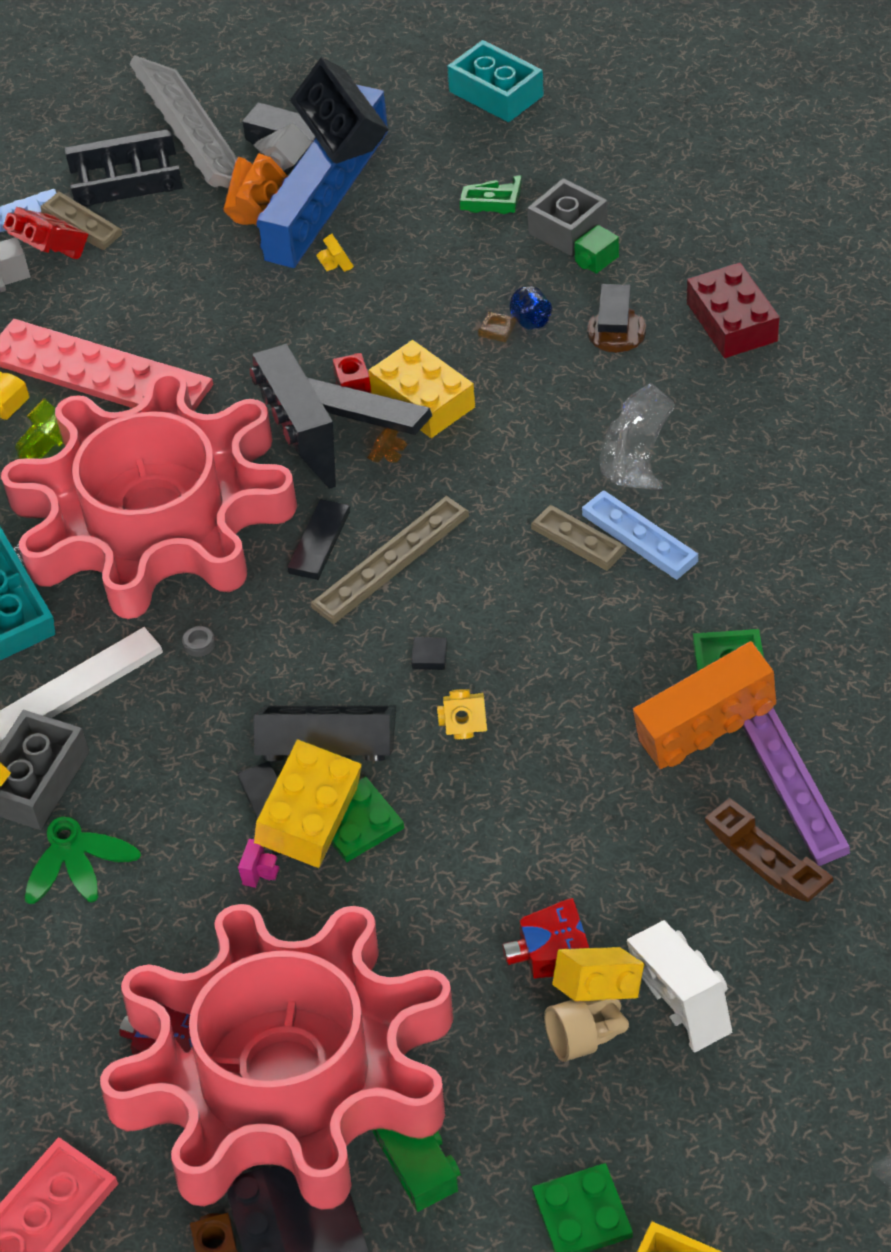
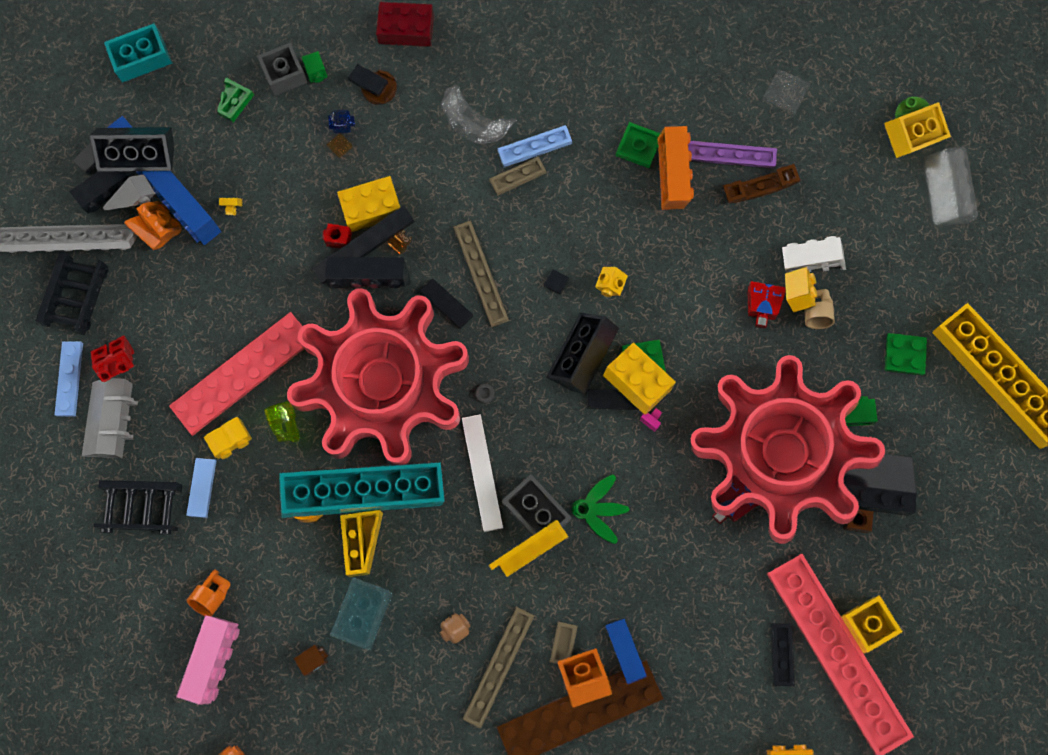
camera: 65 degrees left, 25 degrees up
(100, 231) = (103, 335): dark tan tile -> none

